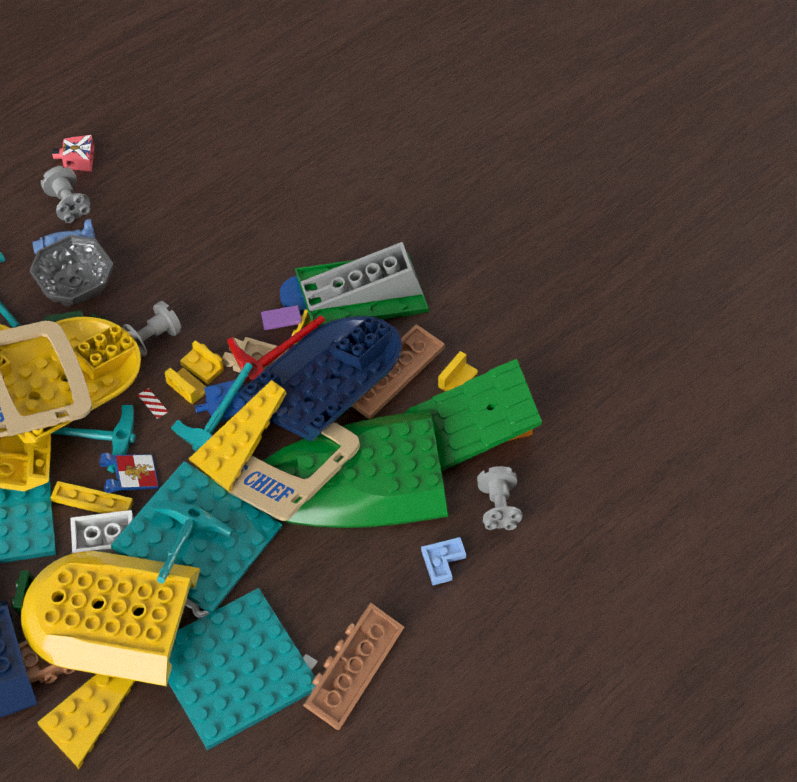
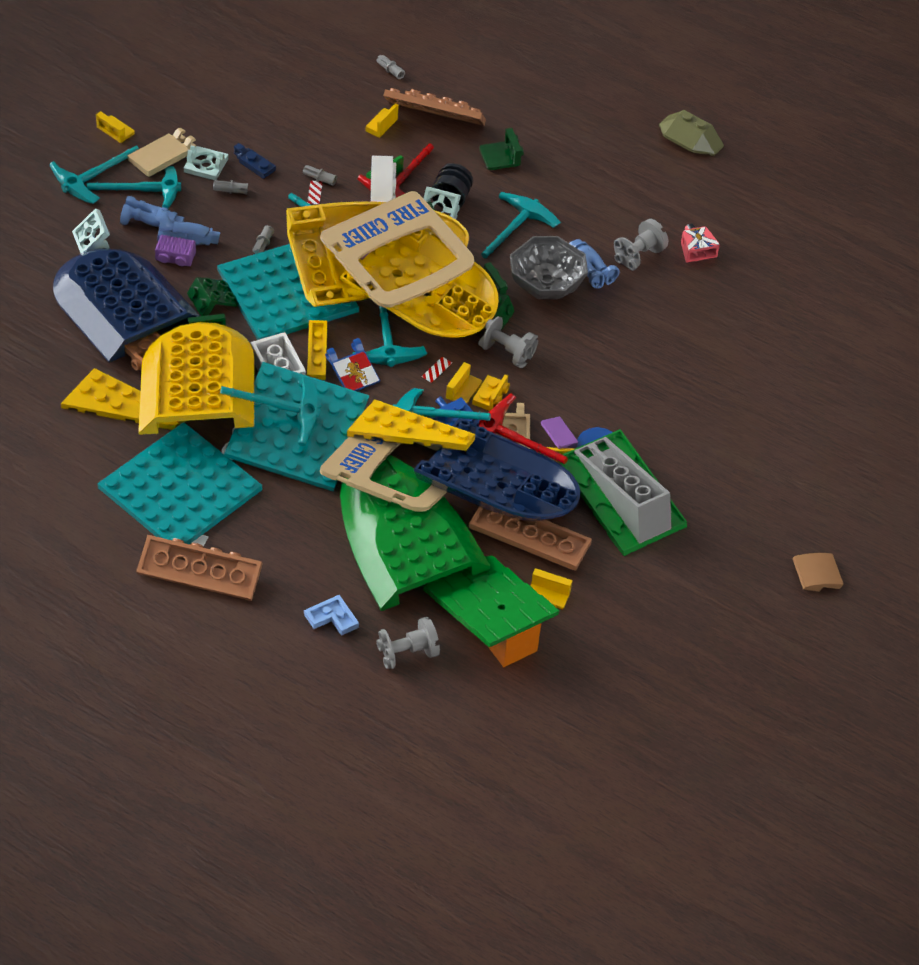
camera: 70 degrees right, 5 degrees down
(489, 176) = (817, 571): none -> medium nougat slope

